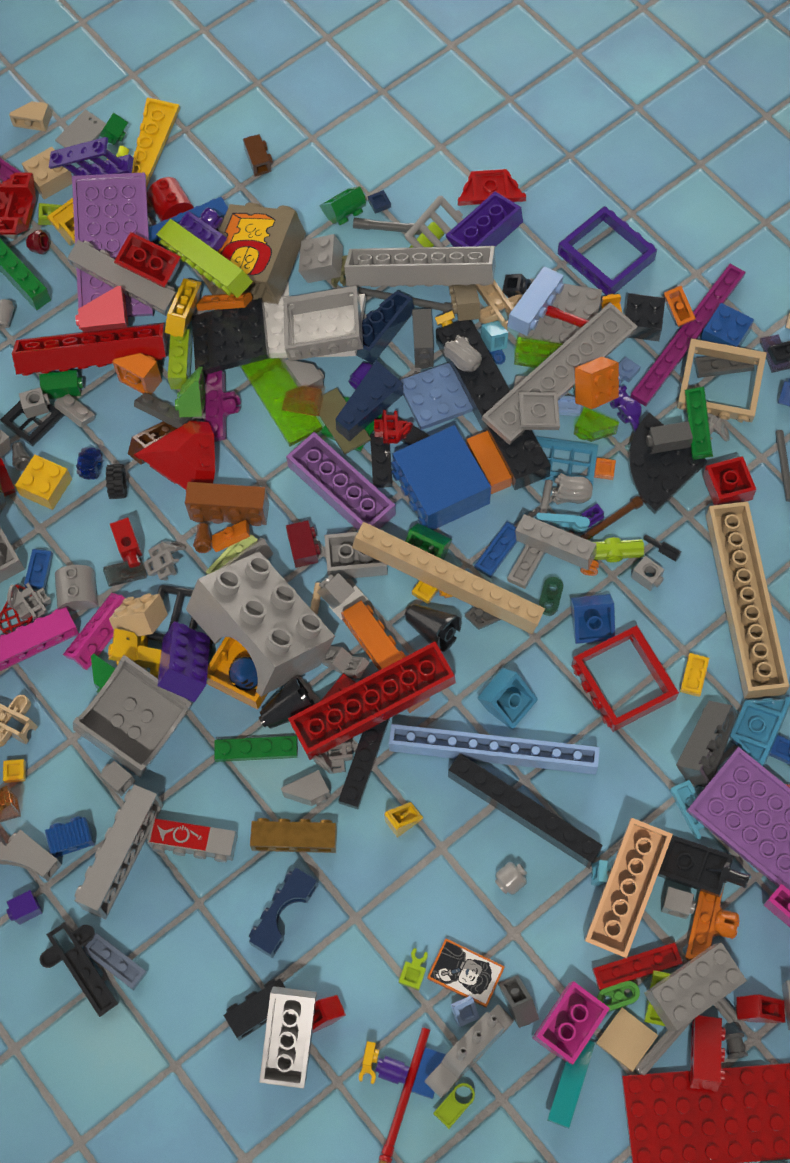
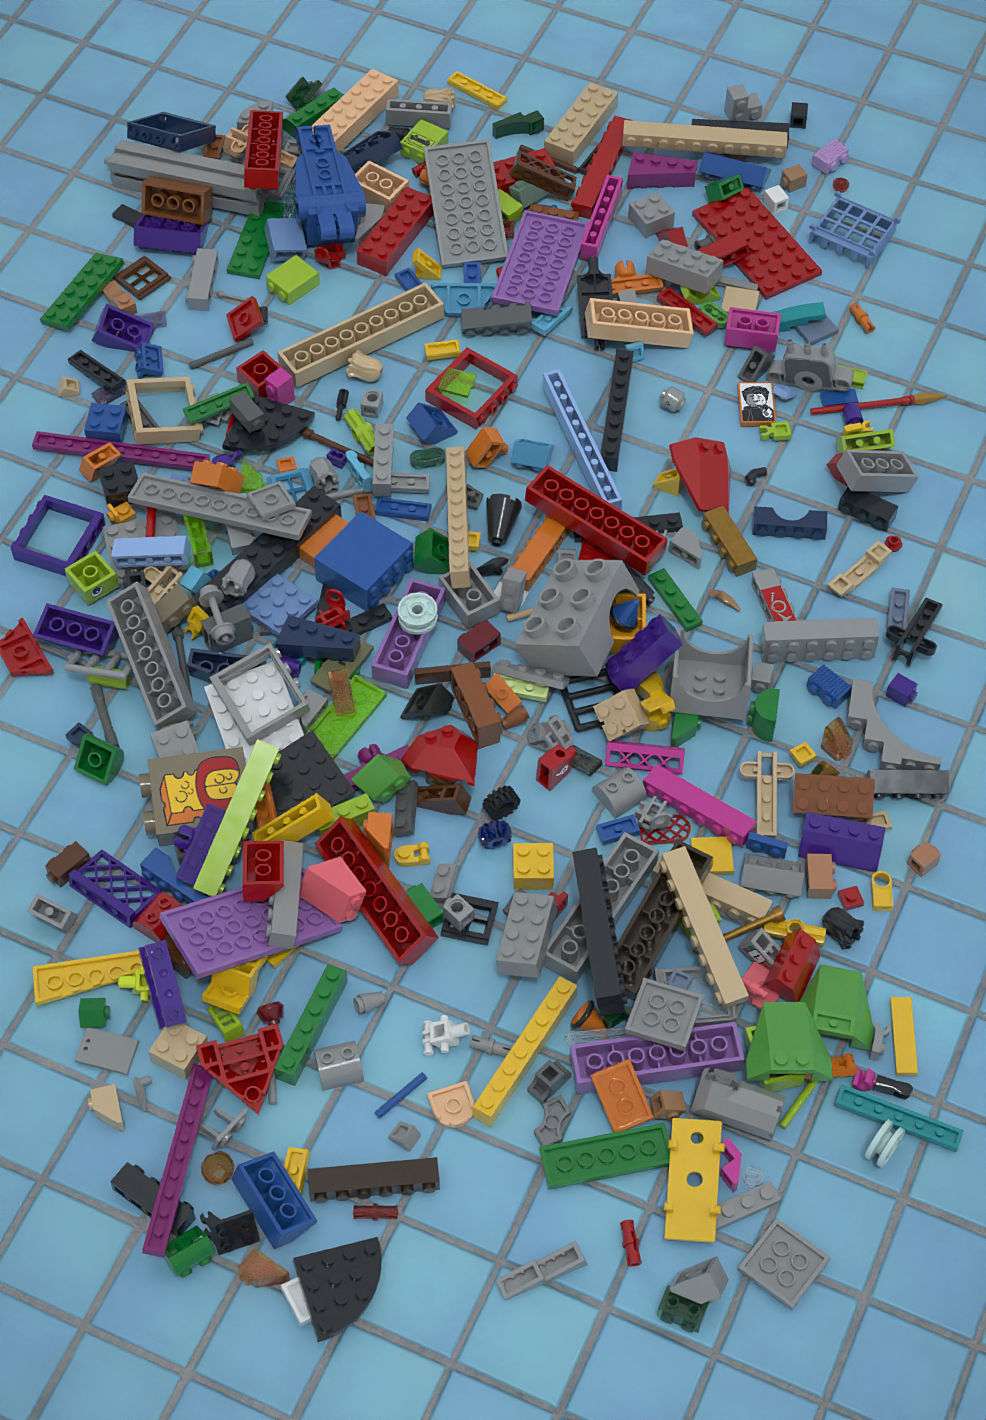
camera: 120 degrees left, 10 degrees down
(40, 143) = (140, 1092): none -> light grey bar
(68, 751) = (764, 714): none -> green brick
(119, 394) = (405, 855): none -> yellow plate
(186, 950) = (860, 571): none -> tan slope
(209, 1012) = (893, 546): none -> red plate
(215, 128) = (52, 912): none -> light grey brick
(215, 166) = (102, 896): none -> dark purple fence
(233, 796) = (724, 598): none -> medium nougat bar
(257, 469) = (428, 701): none -> pearl dark grey slope
(280, 506) = (443, 673): none -> reddish brown tile
(343, 476) = (413, 622): none -> light aqua wheel
(343, 1057) = (866, 441): none -> lime brick
(370, 913) = (754, 473): none -> black arm
(381, 849) = (704, 470): none -> red wedge
(383, 595) = (493, 565): none -> black piece
(403, 319) = (223, 632): none -> light grey piece
(510, 510) = (364, 503): none -> dark orange plate
(529, 648) = (486, 447): none -> orange brick
(539, 1105) = (817, 330): none -> sand blue tile
(540, 252) = (91, 577): none -> lime brick
(630, 659) = (457, 382): none -> clear neon green piece
(700, 489) = (280, 386): none -> dark pink brick
(700, 584) = (364, 367): none -> tan piece

